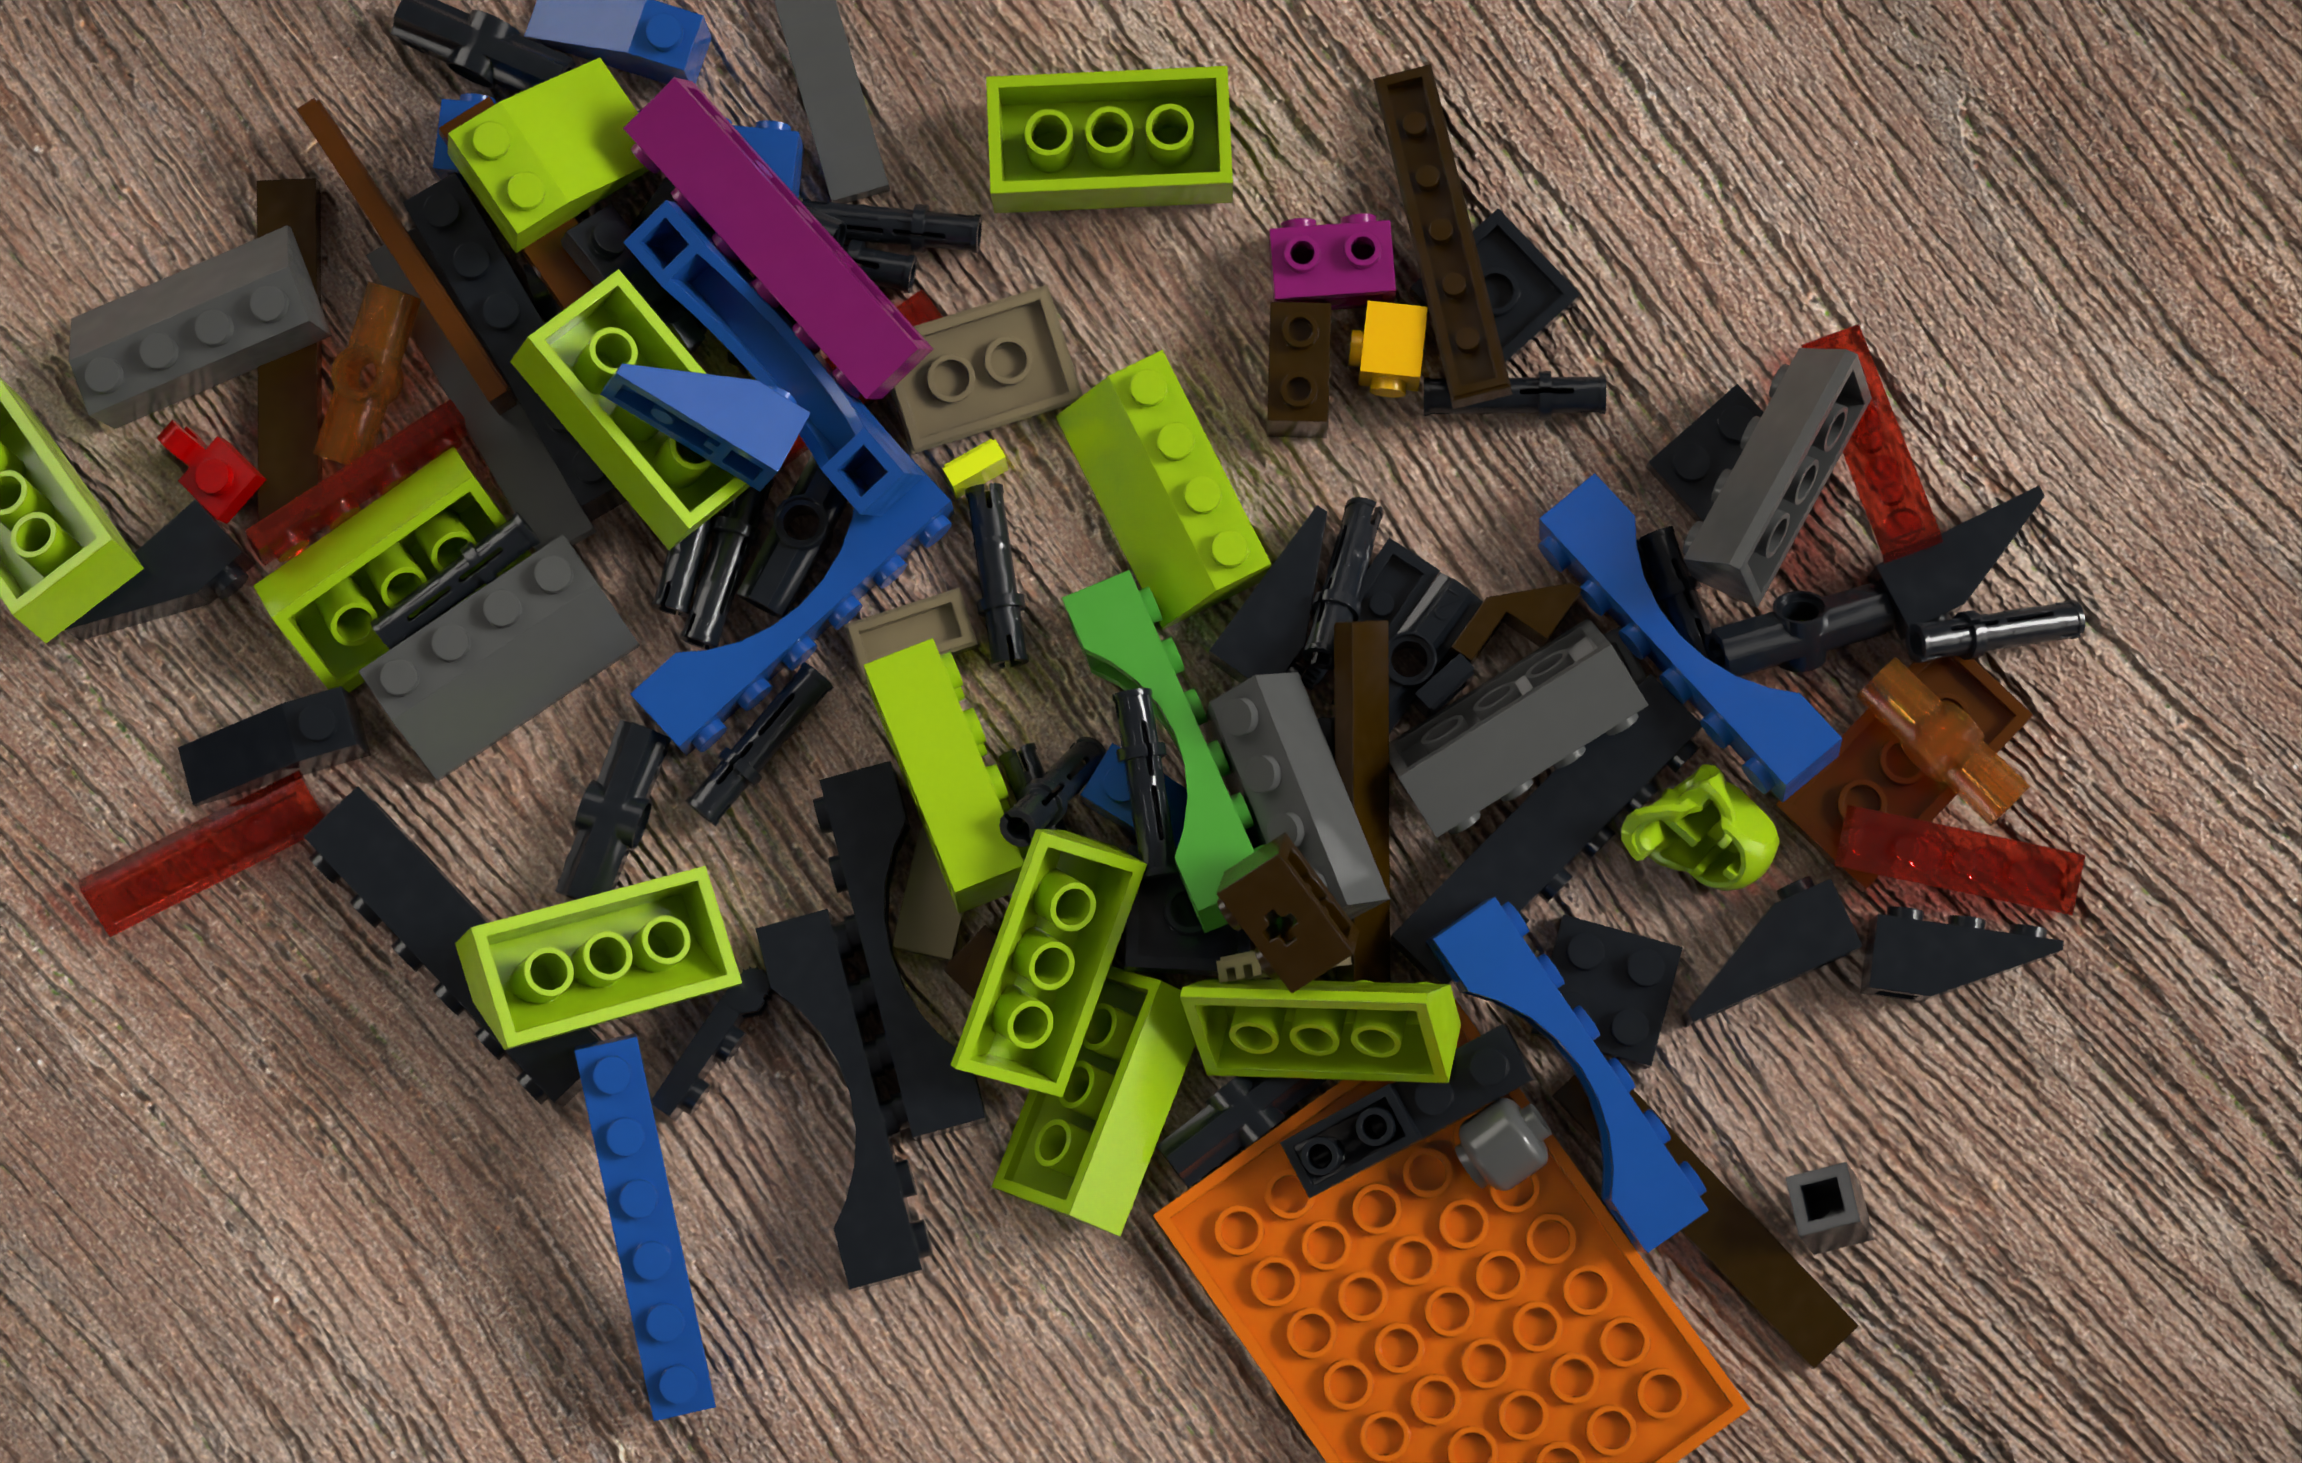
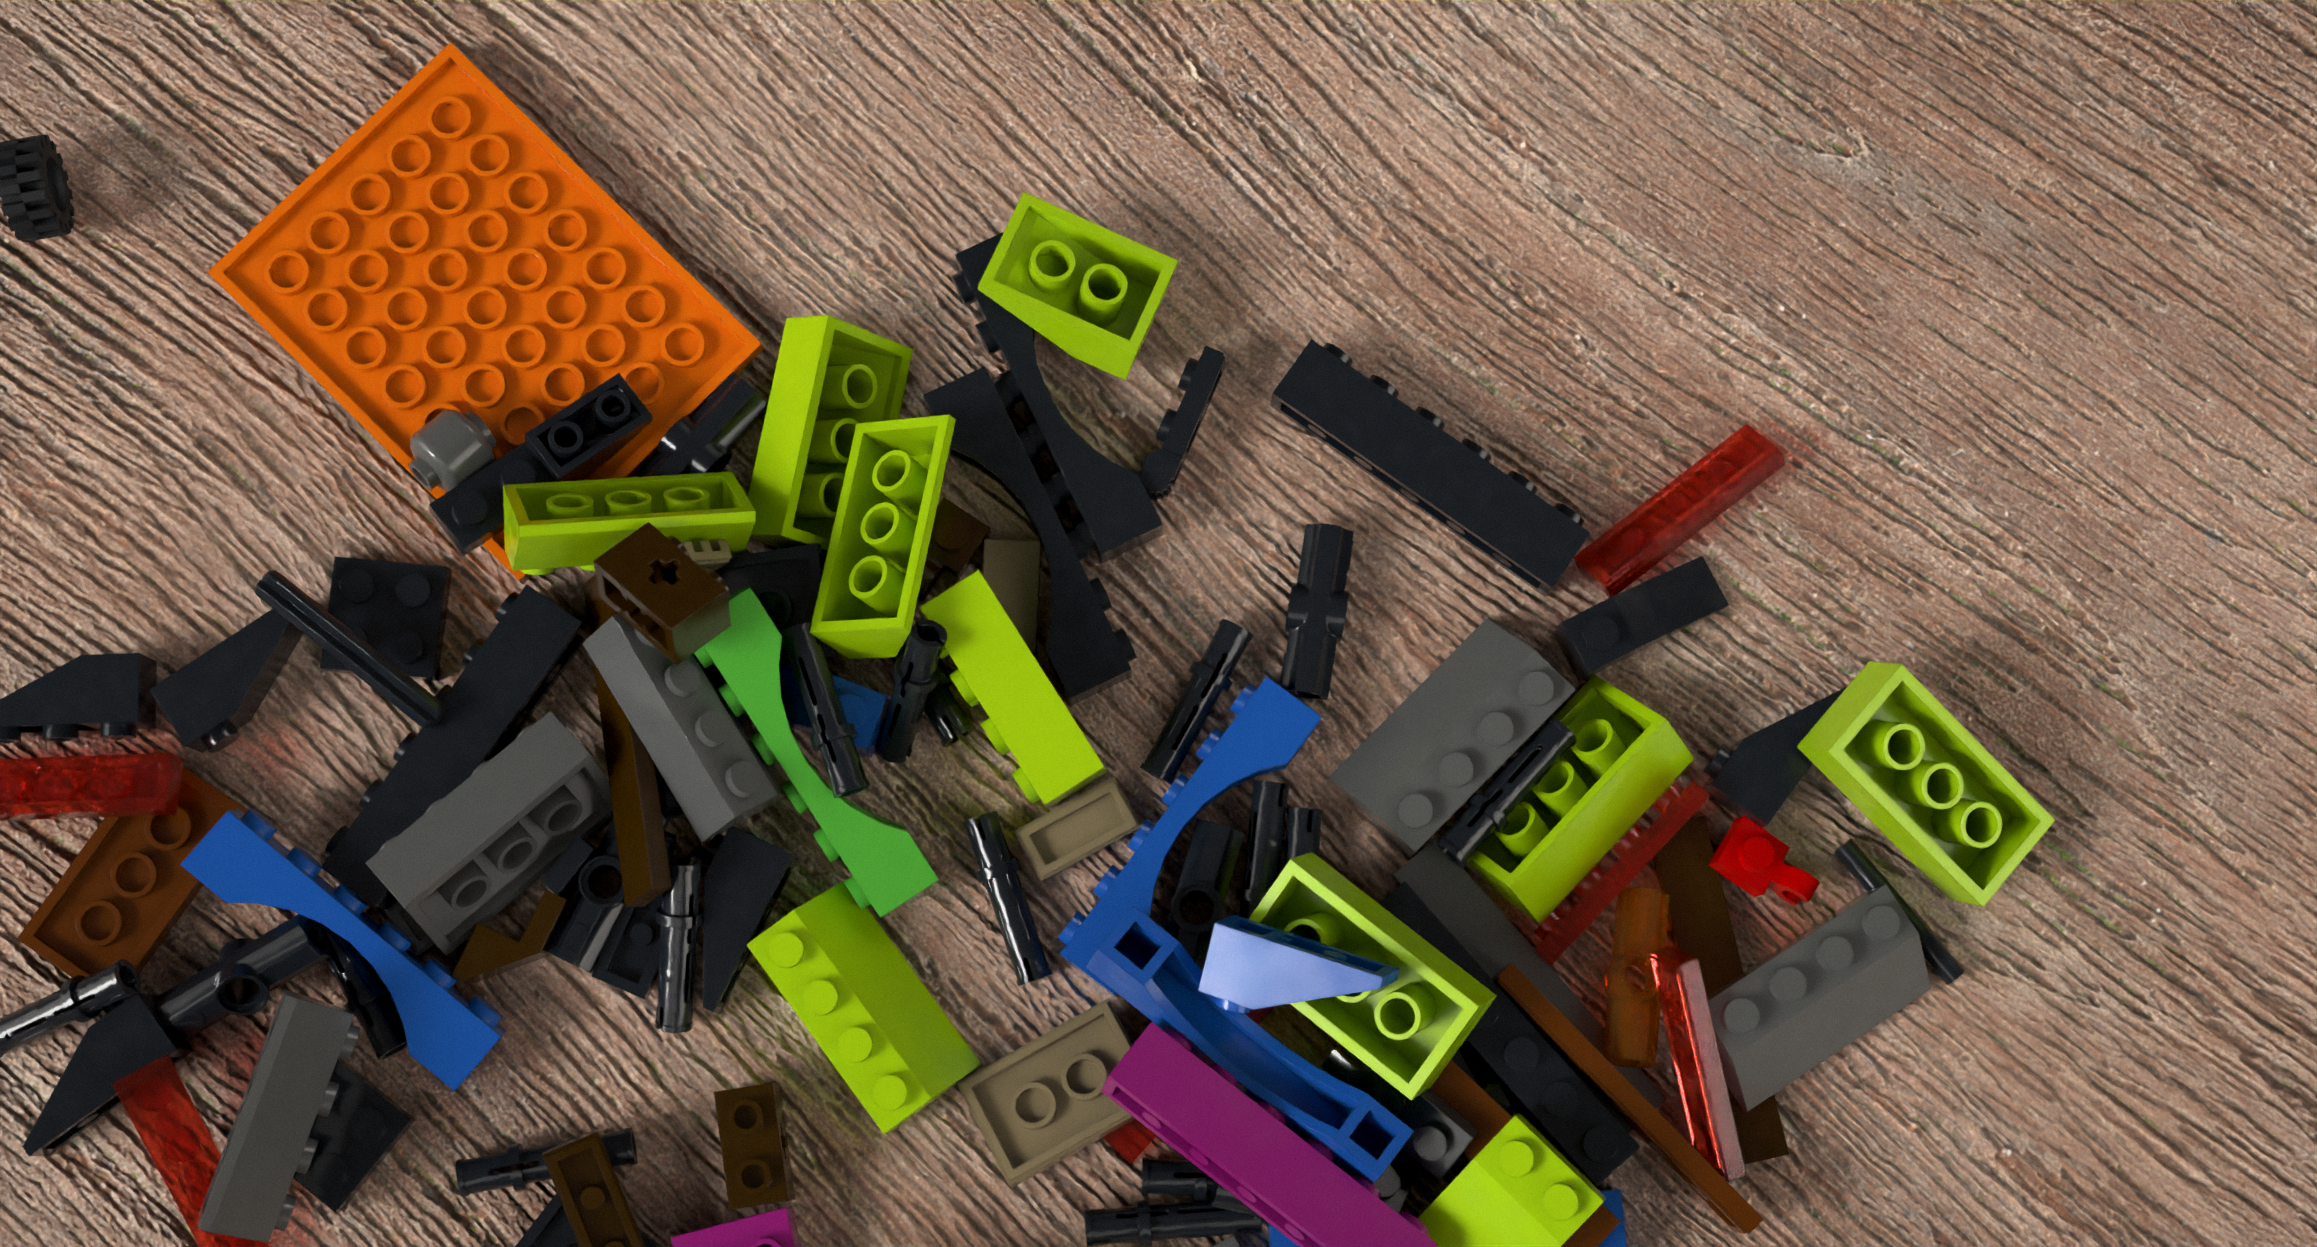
camera: 160 degrees right, 0 degrees up
(100, 434) = (1871, 878): none -> black bar
(325, 274) = (1697, 1060): none -> clear red tile
(598, 958) = (1294, 461): lime slope -> none
(645, 1226) = (1208, 247): blue arch -> none
(791, 1207) = (1078, 283): none -> lime slope
(975, 467) = (1046, 995): neon yellow tile -> none
(1389, 348) = (671, 1184): yellow brick -> none
(1640, 1178) = (329, 447): blue arch -> none
(1641, 945) = (350, 649): none -> black axle
(1704, 830) = (305, 772): lime head -> none
(1744, 1251) = (273, 441): dark brown tile -> none
(1829, 1208) = (154, 452): black brick -> none
(1942, 741) = (94, 892): clear orange piece -> none

